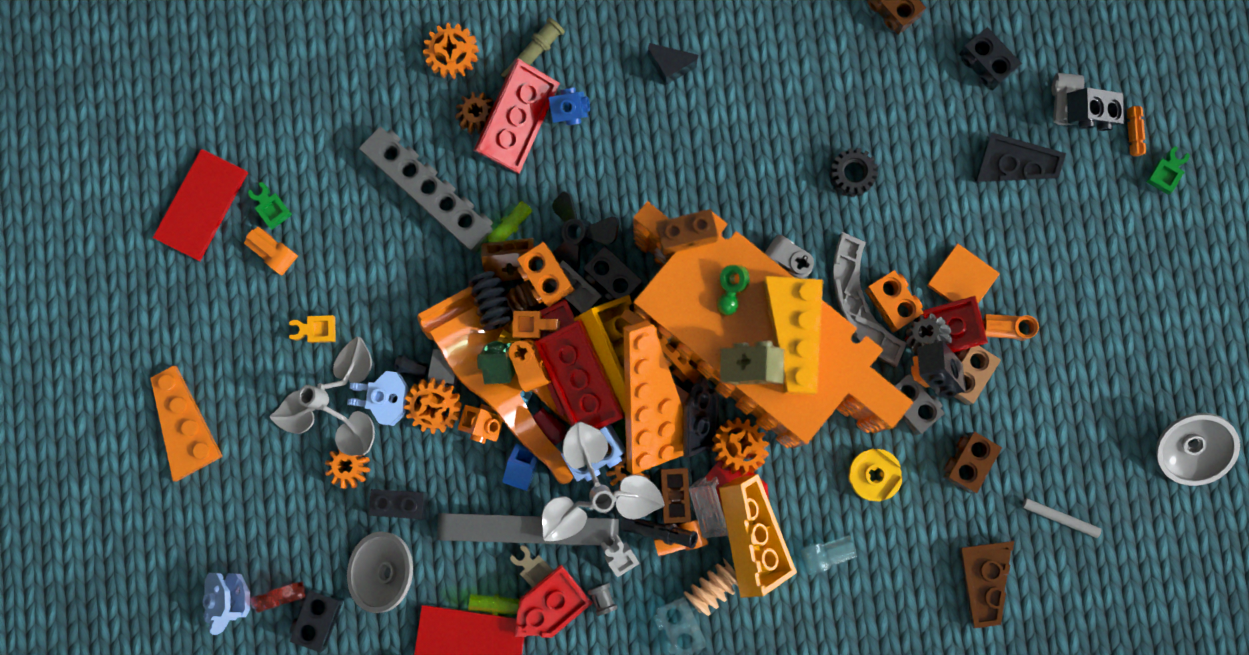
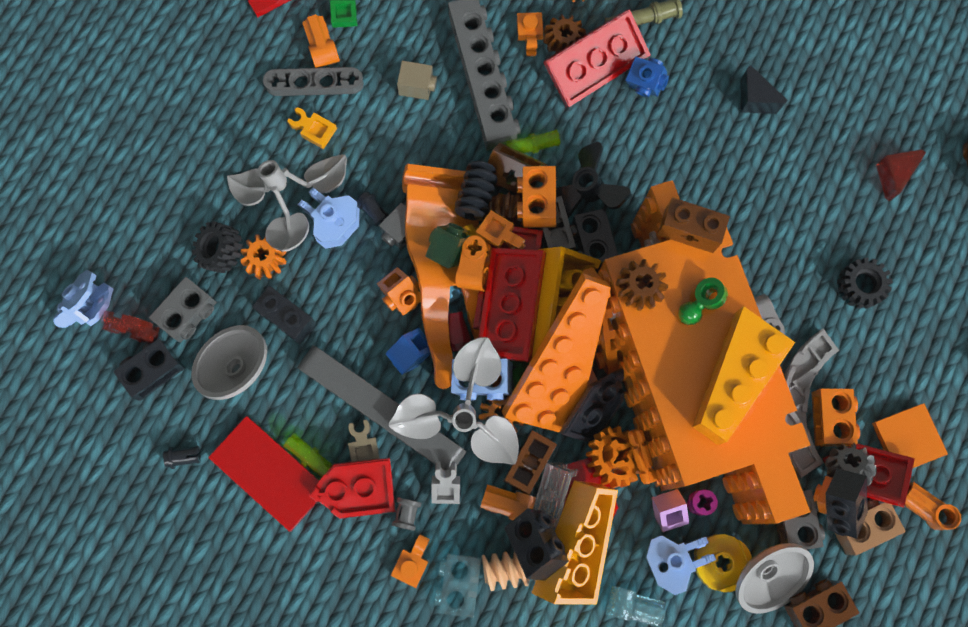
camera: 25 degrees right, 5 degrees down
(183, 426) = (152, 138): orange wing -> none
(289, 290) = (313, 86): none -> dark grey beam
(304, 552) = (178, 305): none -> dark grey brick
(315, 481) = (227, 250): none -> black tyre
(375, 232) = (416, 80): none -> dark tan brick
(433, 405) = (377, 243): orange gear -> none
(443, 124) = (530, 29): none -> orange plate
(632, 636) = (411, 564): none -> orange plate
(668, 299) = (633, 276): none -> reddish brown gear
(669, 533) = (502, 491): black pin -> none
(720, 558) = (536, 544): none -> black brick
(752, 364) = (681, 378): olive brick -> none
(760, 433) = (642, 456): none -> orange axle
(809, 461) = (670, 510): none -> lavender plate
(824, 58) = (896, 171): none -> clear red slope
(838, 436) = (709, 507): none -> magenta bush
(840, 498) = (678, 560): none -> light blue hinge
(920, 463) = (774, 577): none -> light grey dish

